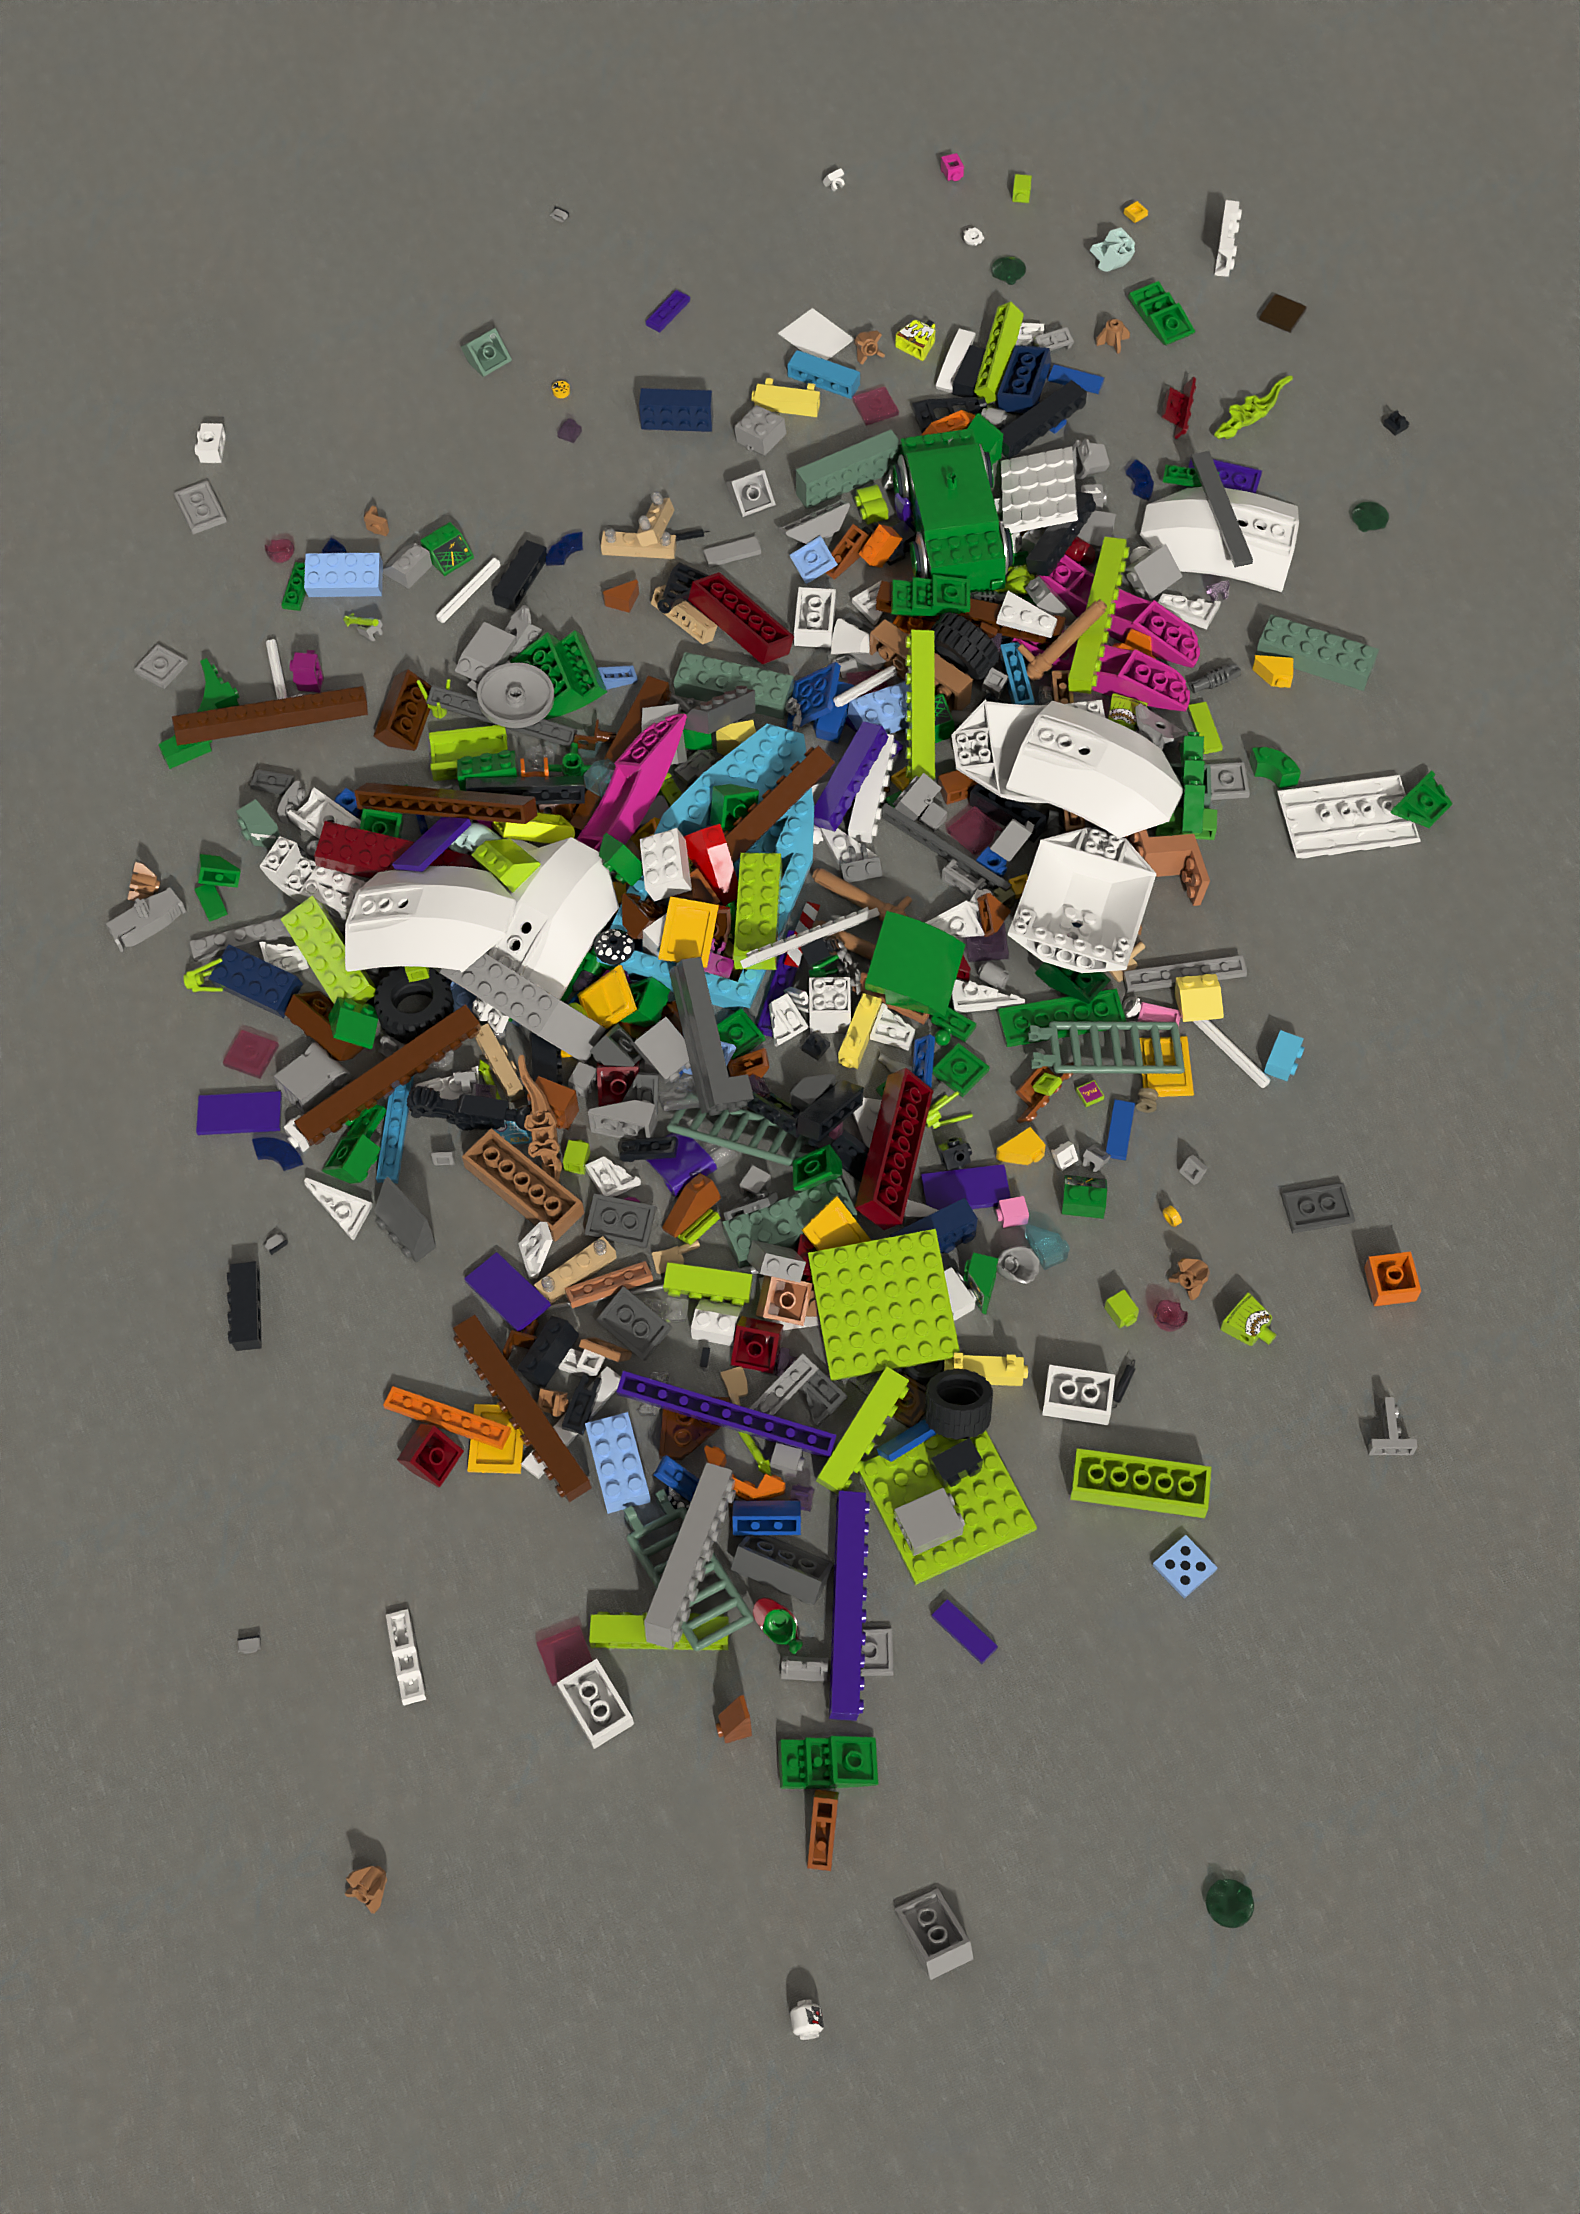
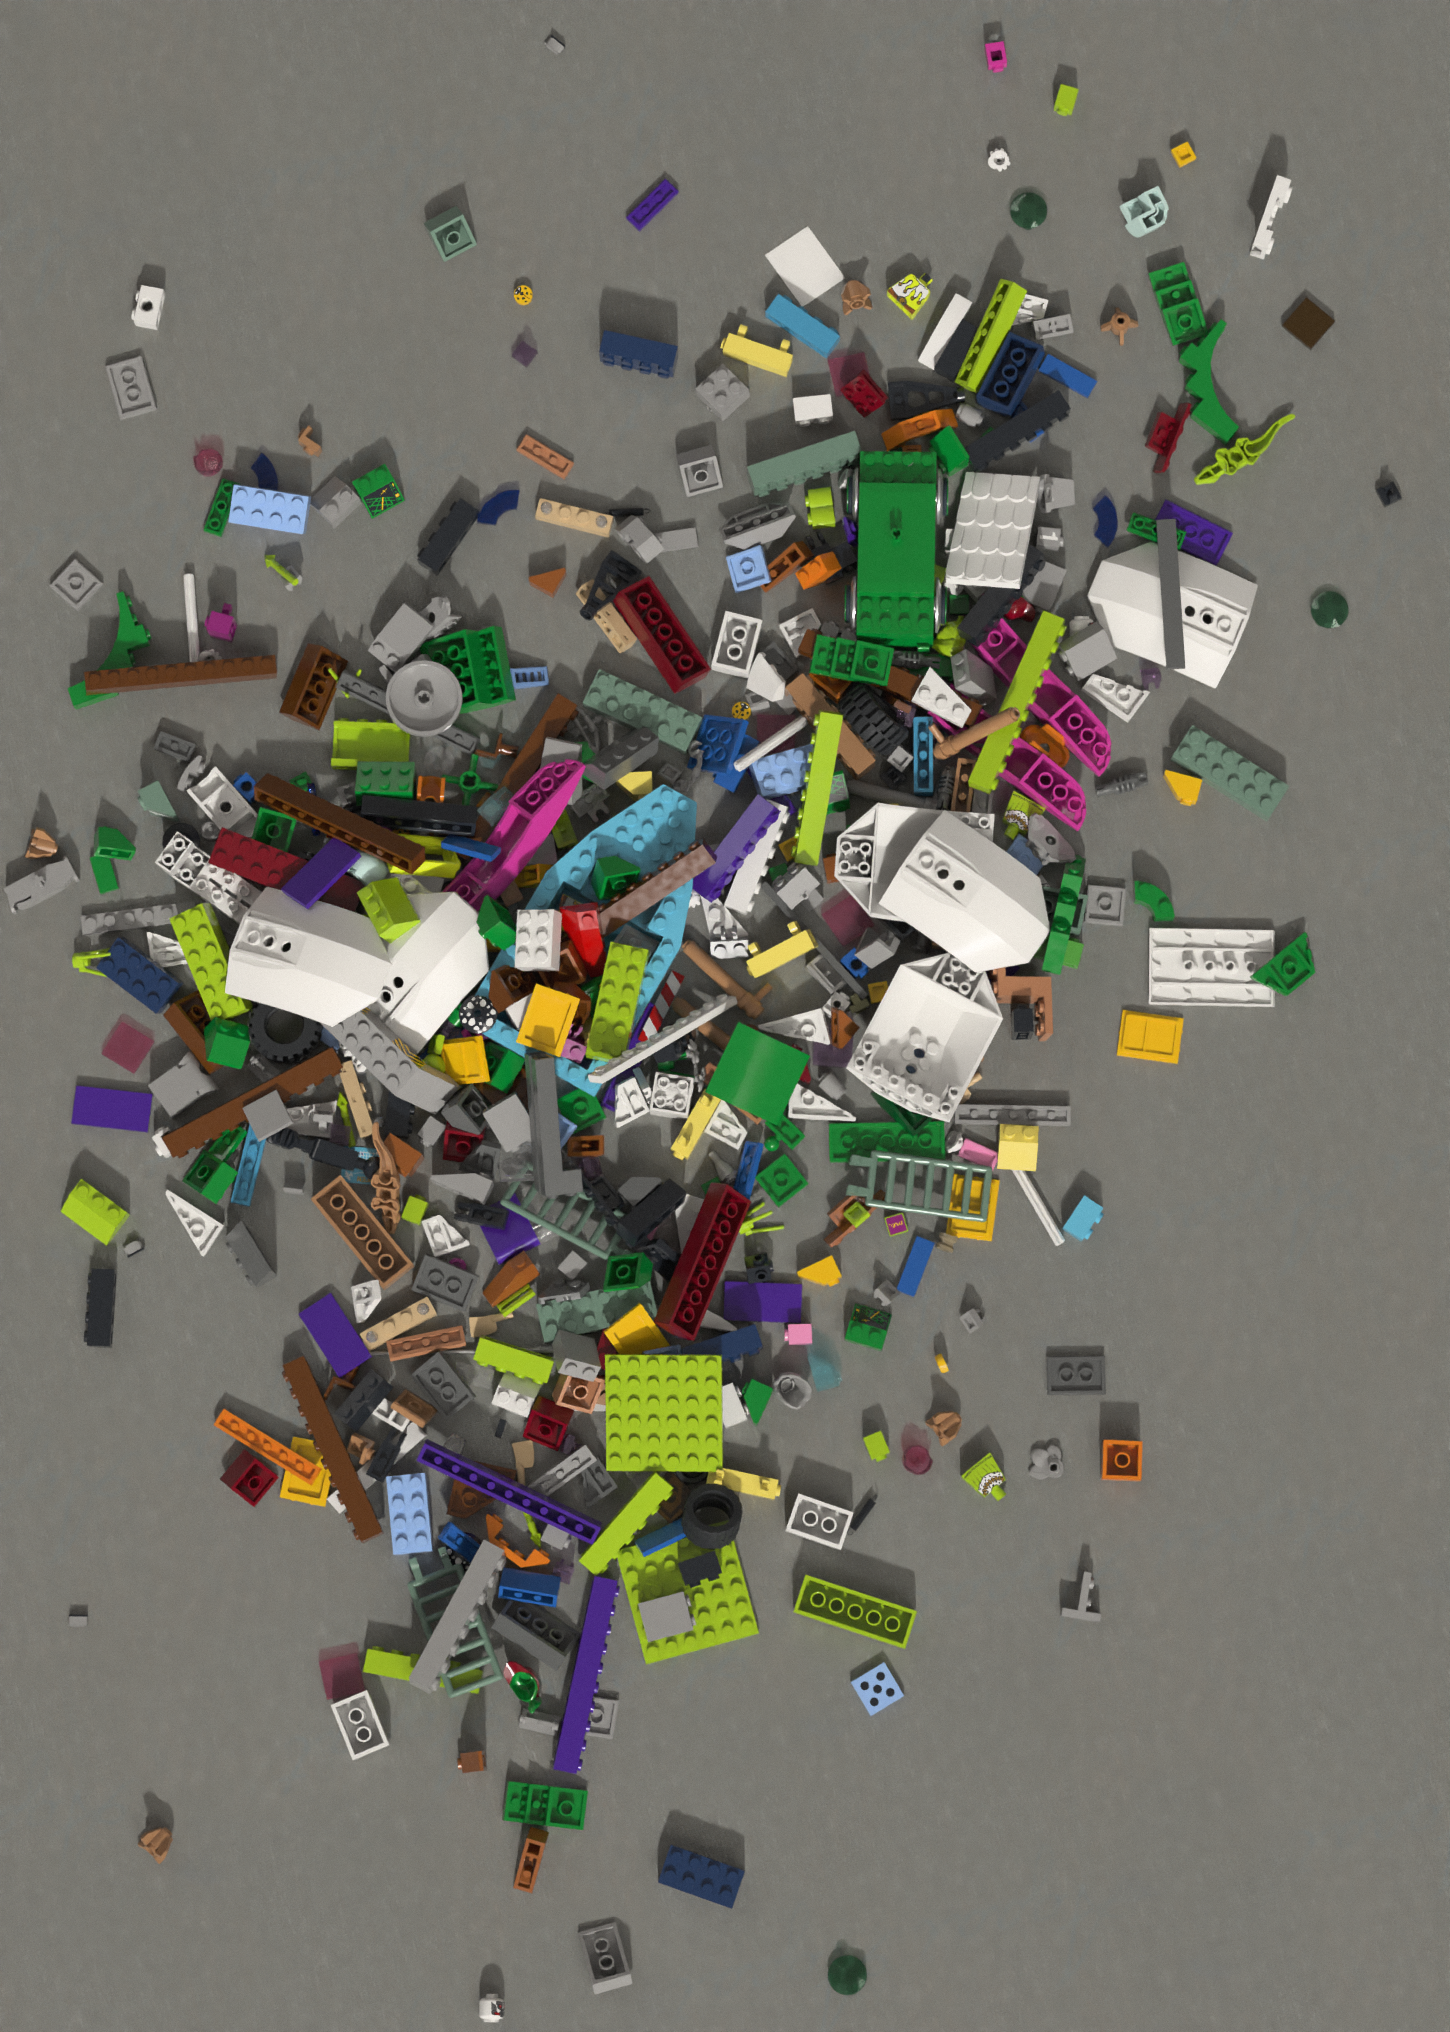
camera: 10 degrees right, 20 degrees up
(229, 1211) = (94, 1212): none -> lime slope
(278, 1151) = (143, 1154): clear blue tile -> none
(405, 1077) = (267, 1115): none -> light grey tile
(405, 1657) = (208, 1654): white slope -> none
(468, 590) = (393, 544): white axle -> none
(575, 993) = (436, 1044): none -> lime tile
(582, 811) = (470, 847): none -> blue tile
(602, 505) = (545, 456): none -> nougat tile
(655, 521) = (594, 500): tan piece -> none
(706, 545) = (640, 538): none -> light grey brick
(815, 1046) = (652, 1130): black tile -> none
(834, 177) = (863, 48): white tile -> none
(846, 432) = (812, 410): none -> white brick
(892, 410) = (864, 394): none -> dark red bracket
(915, 861) = (782, 953): none -> light yellow brick
(964, 1631) = (679, 1713): dark purple tile -> none
(1030, 1813) = (701, 1876): none -> dark blue brick
(1064, 1155) = (858, 1285): white tile -> none
(1175, 882) = (1022, 1023): none -> black brick
(1203, 723) = (1098, 839): lime tile -> none
(1211, 382) = (1209, 411): none -> green arch
(1304, 886) = (1150, 1036): none -> yellow piece
(1308, 1296) = (1044, 1461): none -> light grey plate

